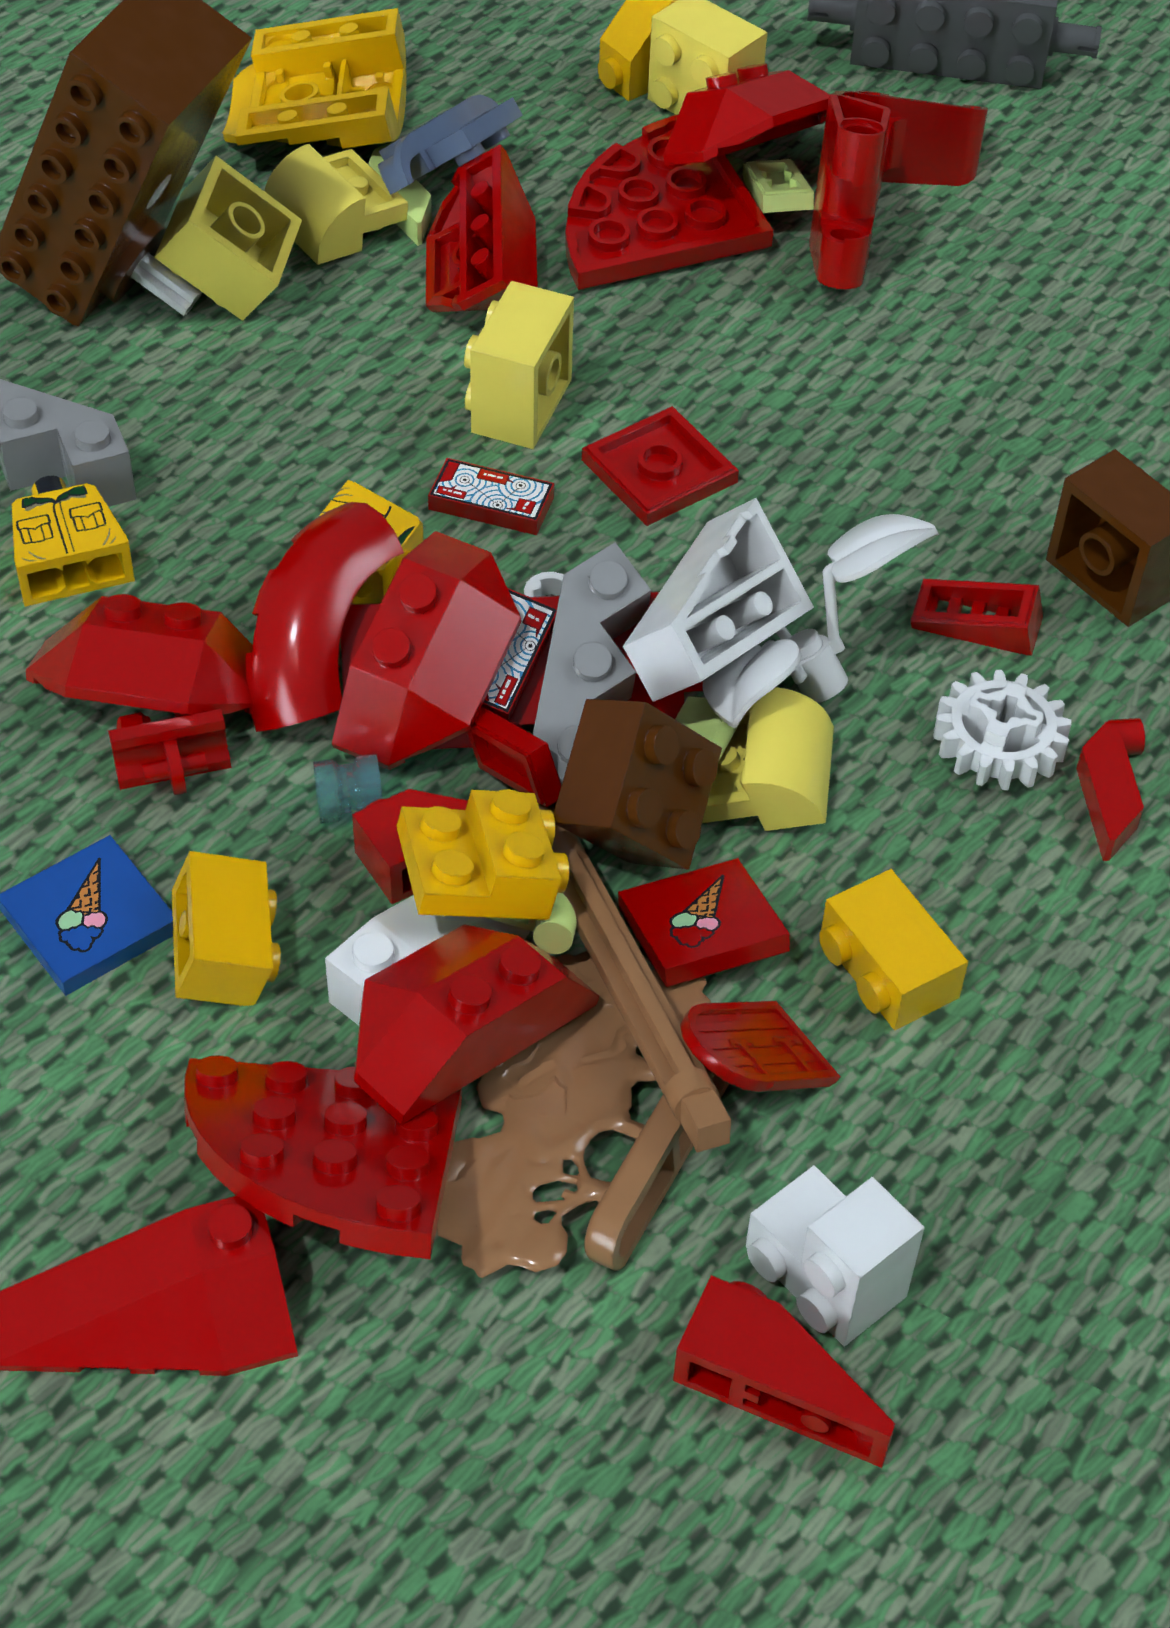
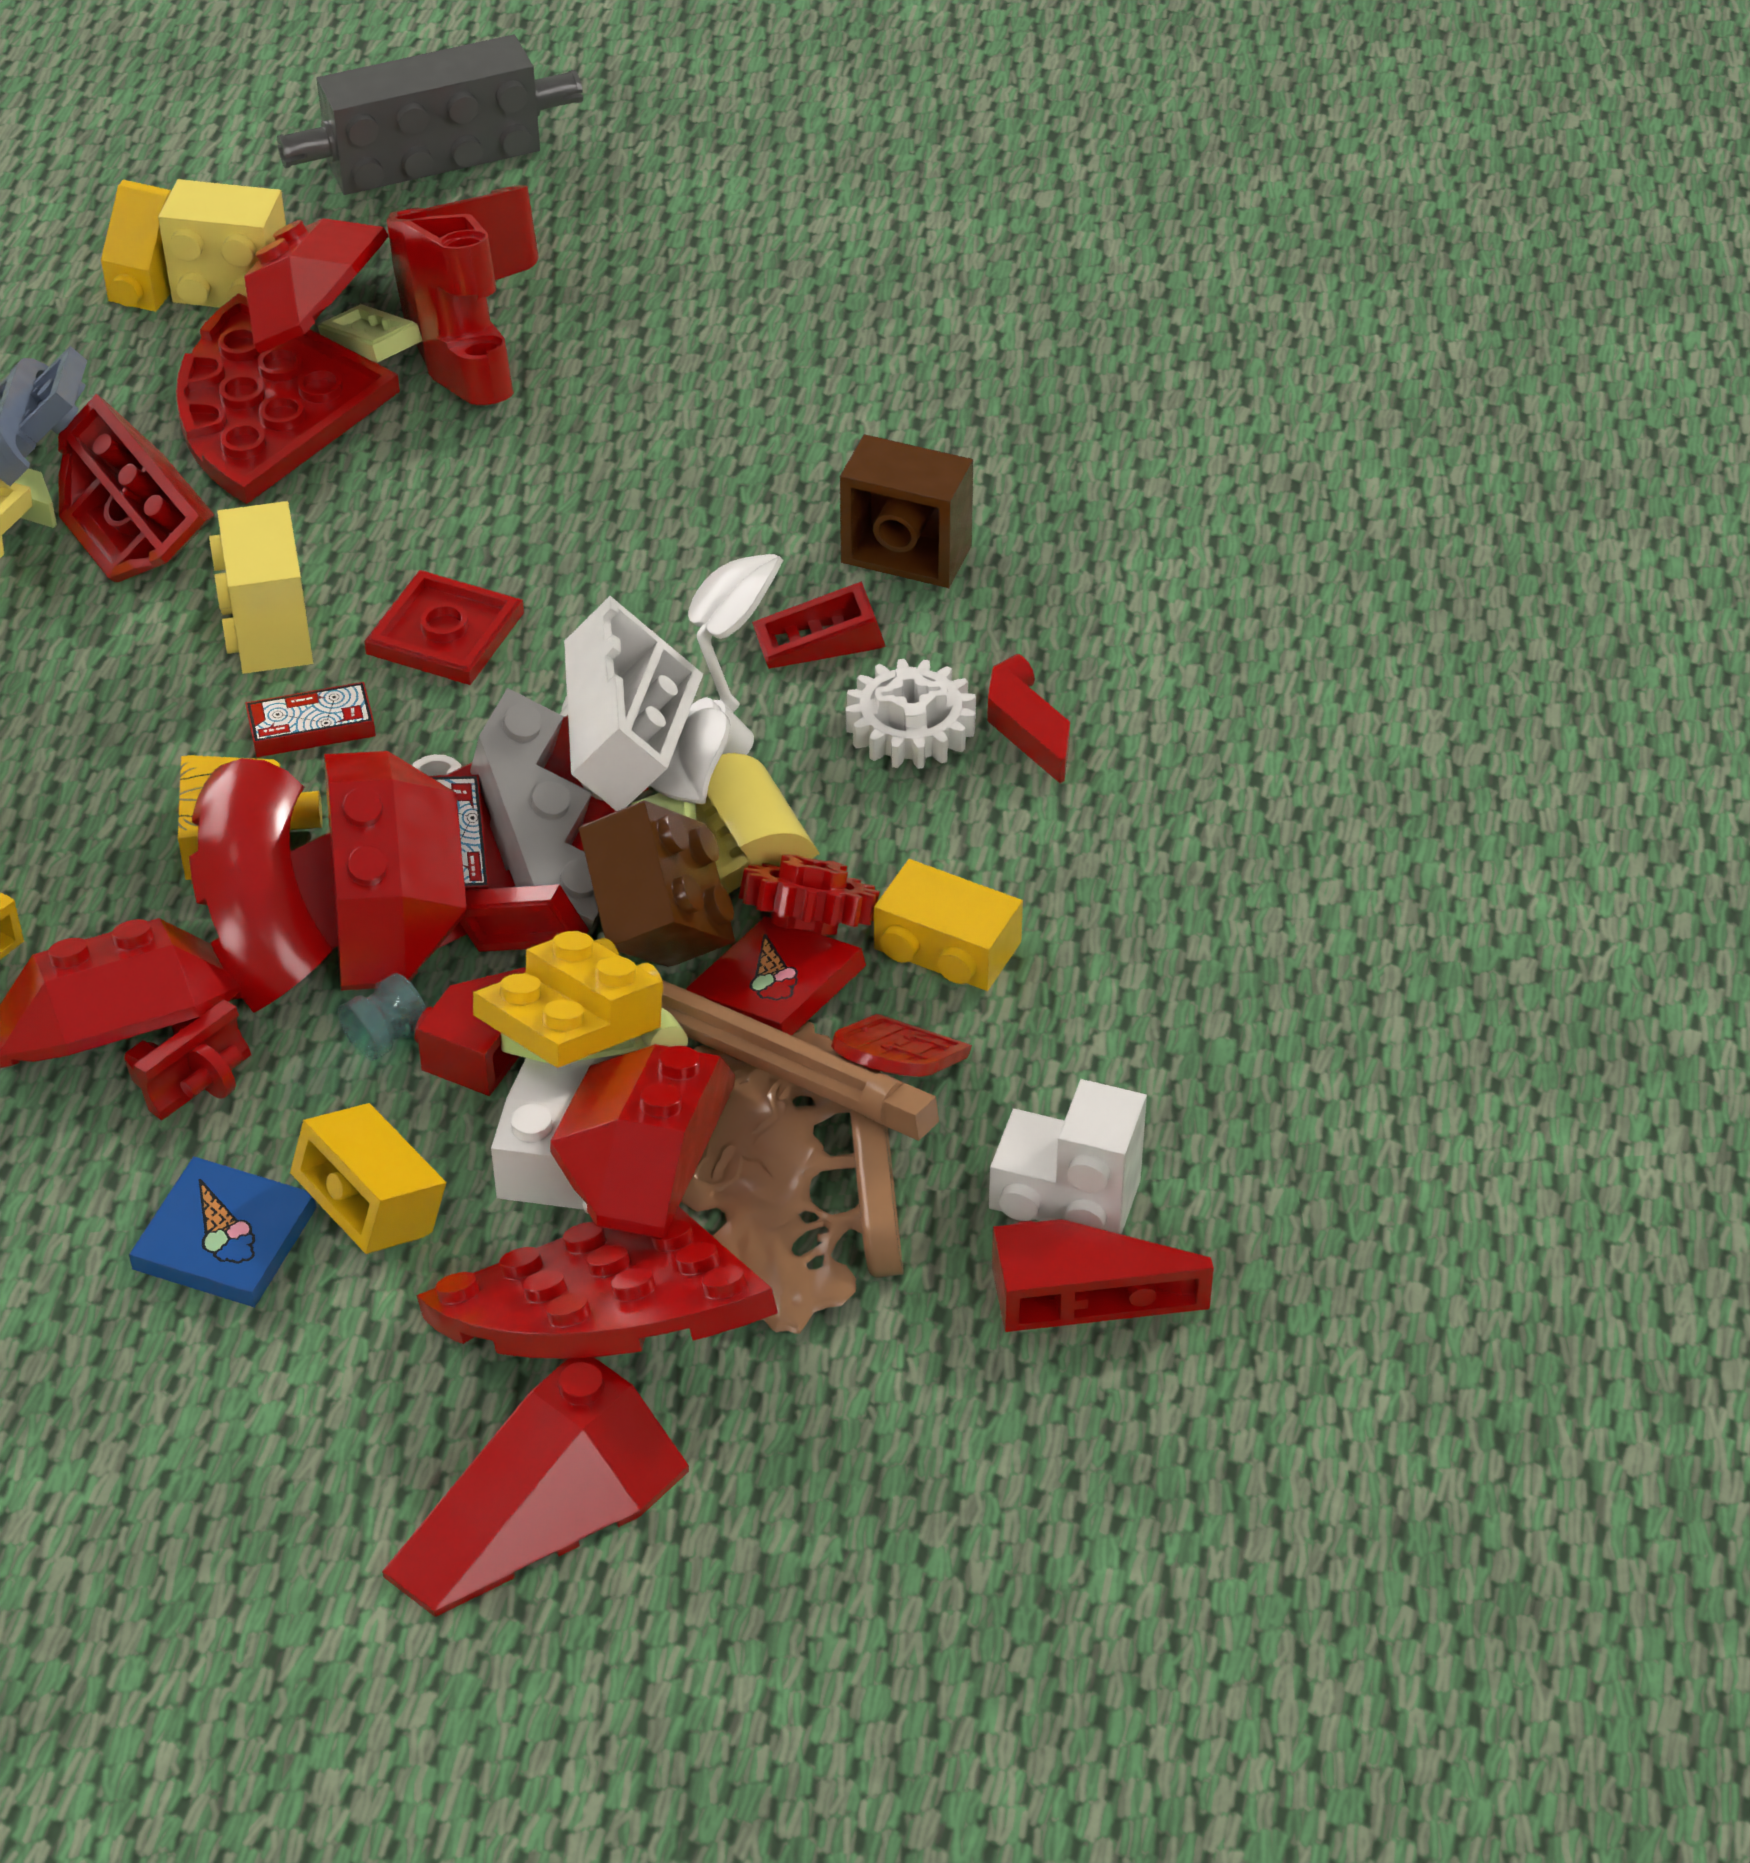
camera: 30 degrees left, 5 degrees down
(779, 857) = (808, 894): none -> red gear

